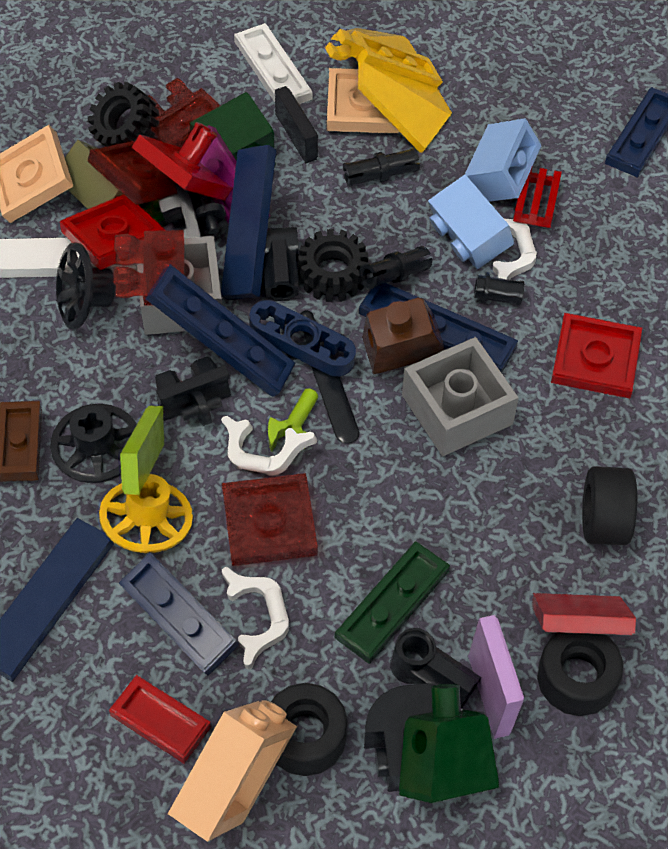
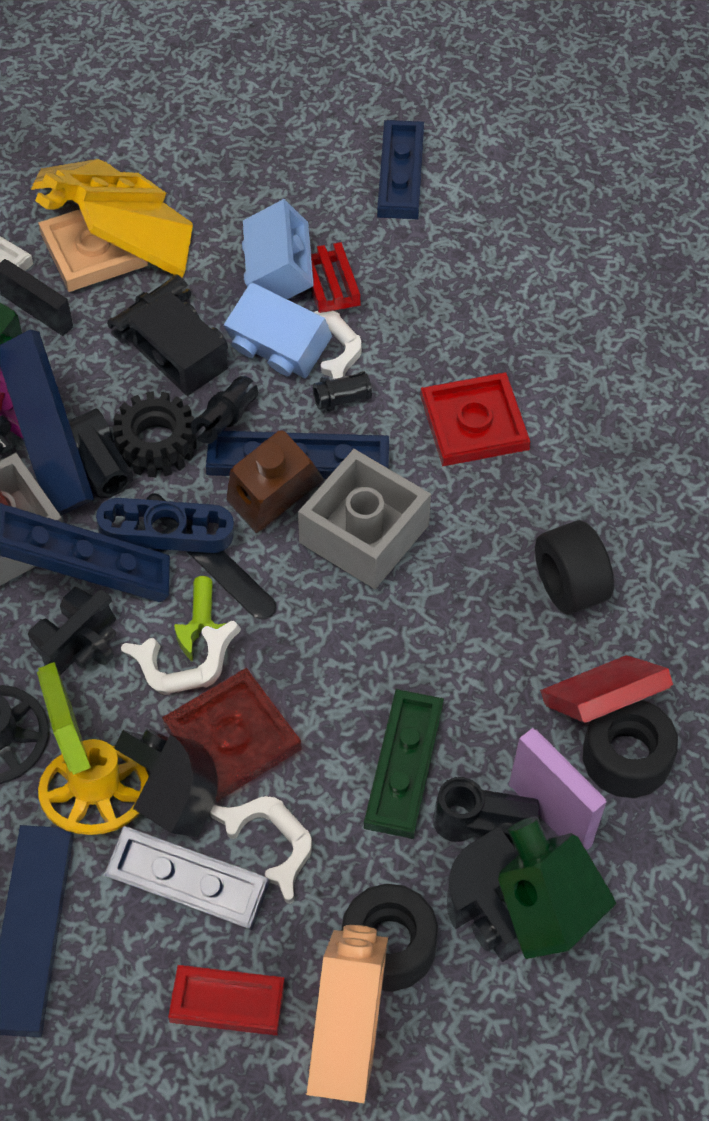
camera: 25 degrees left, 0 degrees up
(206, 538) = (180, 781): none -> black brick
(389, 202) = (179, 342): none -> black brick

